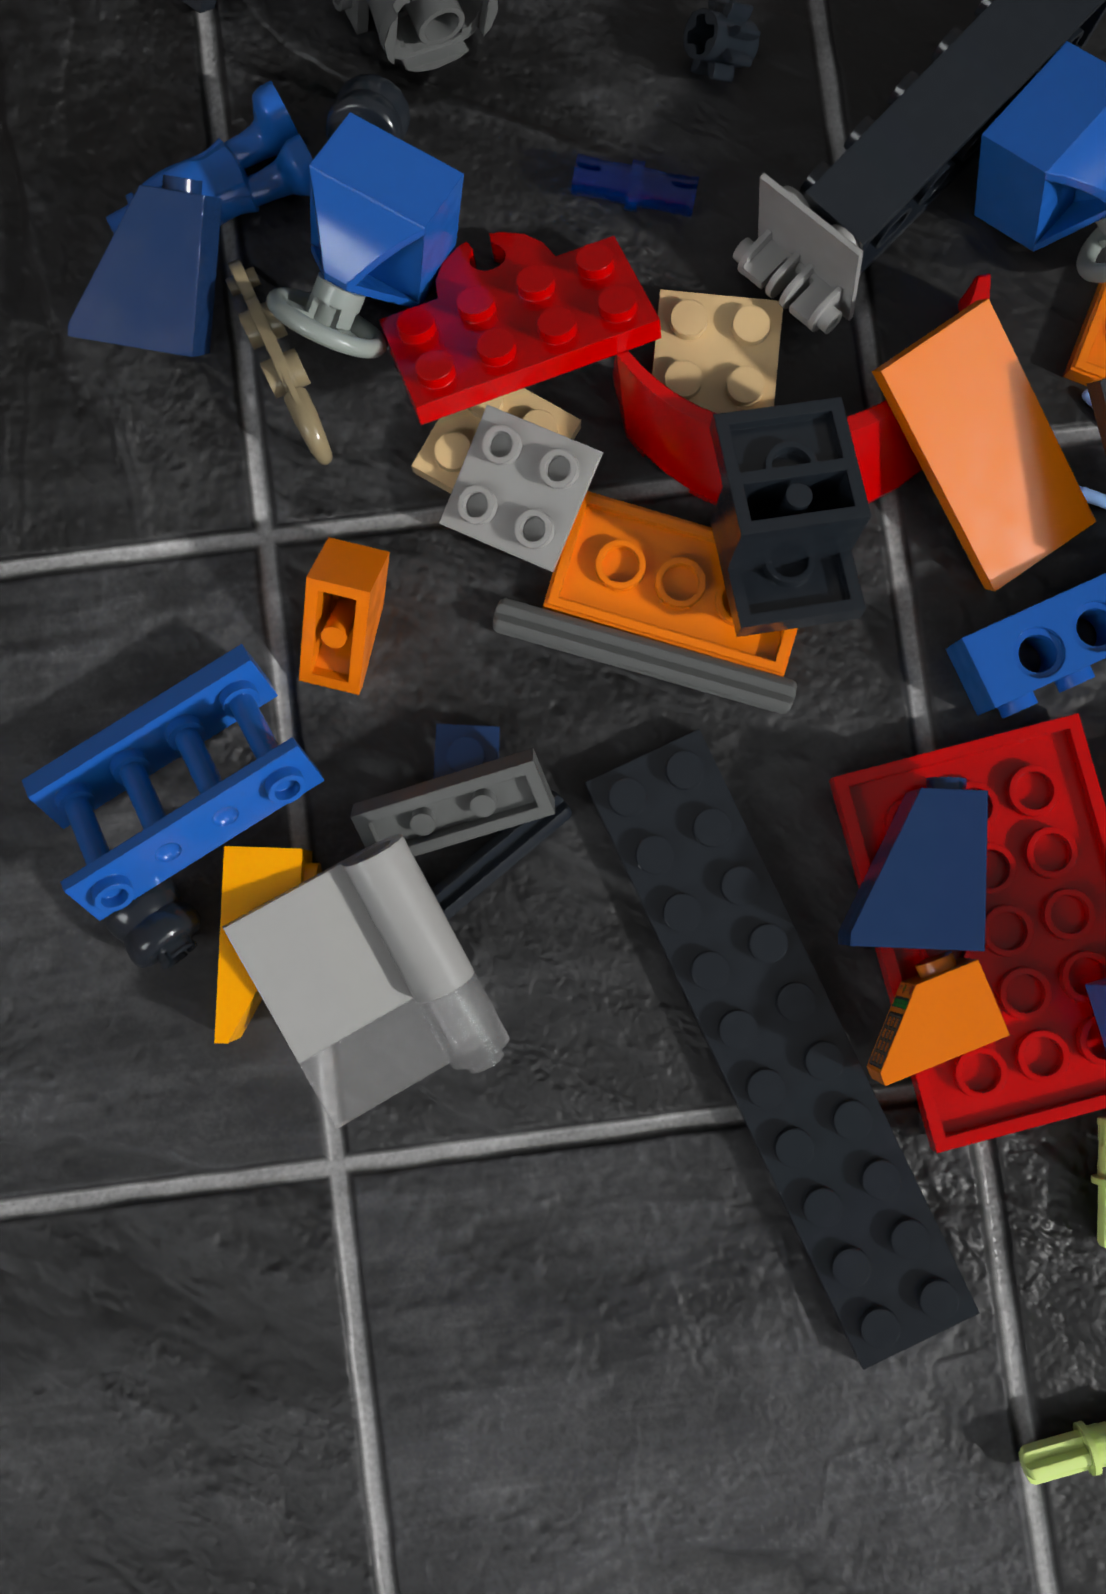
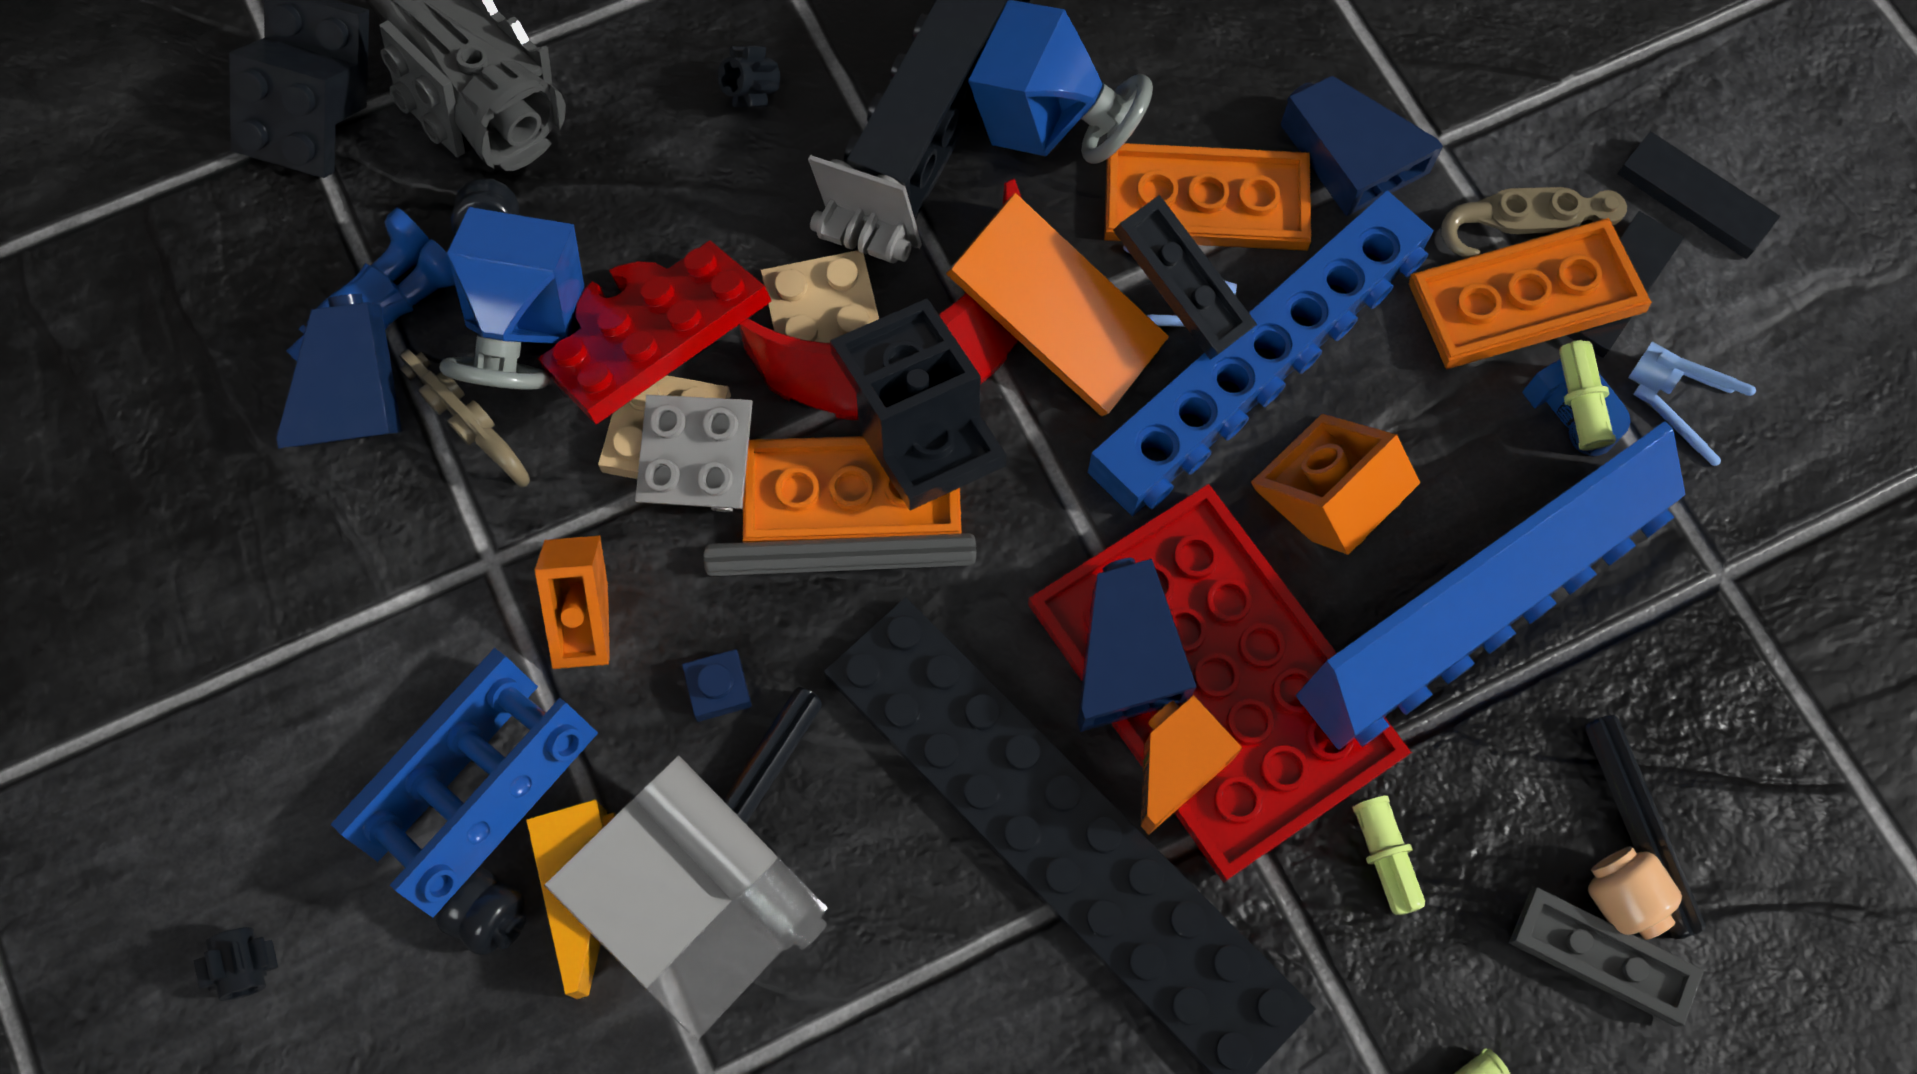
camera: 20 degrees left, 15 degrees down
(459, 805) = (722, 720): dark grey plate -> none
(634, 185) = (715, 201): clear blue pin -> none

